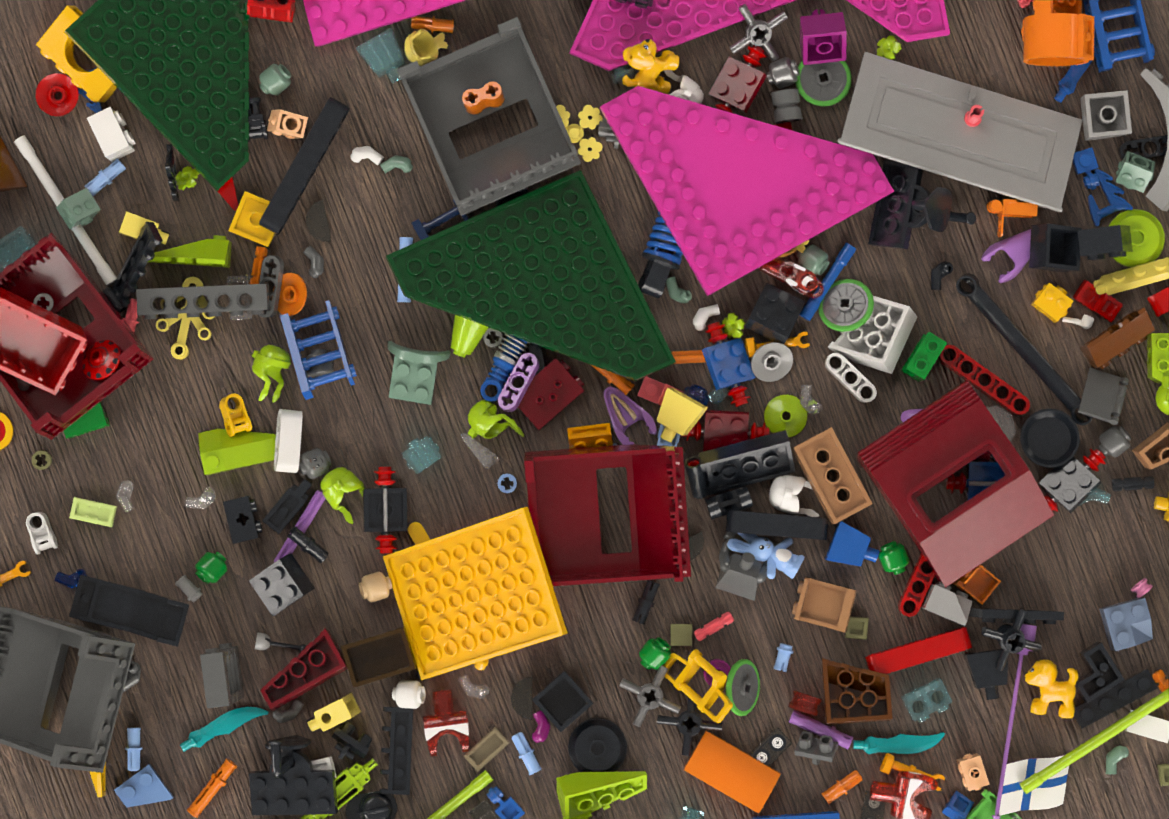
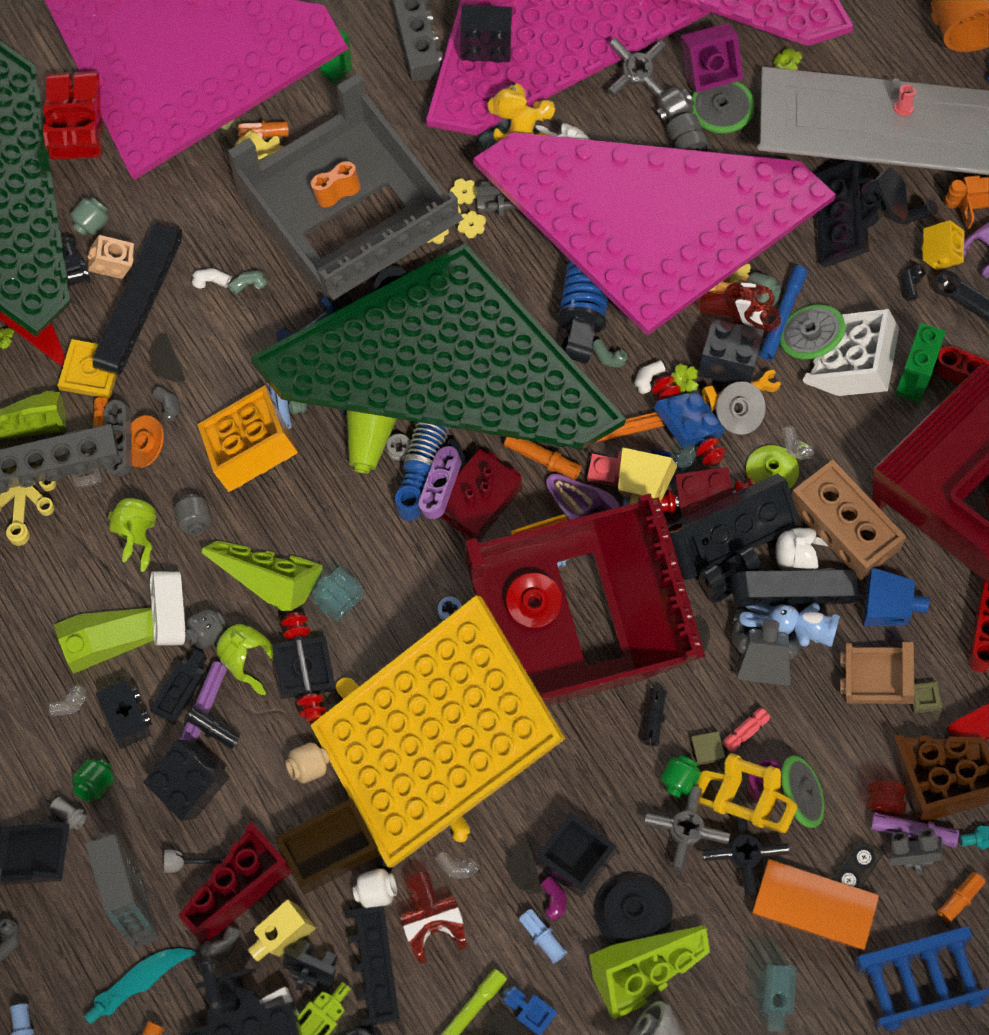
camera: 10 degrees left, 20 degrees down
(236, 416) = (96, 594): yellow piece -> none
(297, 345) = (172, 510): blue fence -> none
(371, 310) = (246, 439): none -> light orange slope
(374, 430) = (271, 578): none -> lime wedge
(382, 55) = (209, 169): clear light blue torso -> none
(414, 373) = (310, 501): sand green piece -> none
(484, 421) = (404, 534): lime hair -> none
(484, 455) = (411, 578): clear slope -> none
(486, 749) = (489, 941): dark tan tile -> none
(573, 510) = (542, 589): none -> red dish
(739, 82) = (629, 120): plate -> none
(783, 657) = (843, 749): light blue pin -> none
(861, 380) = (844, 420): white beam -> none
(893, 557) = (948, 601): green head -> none
(972, 251) = (943, 245): none -> yellow head

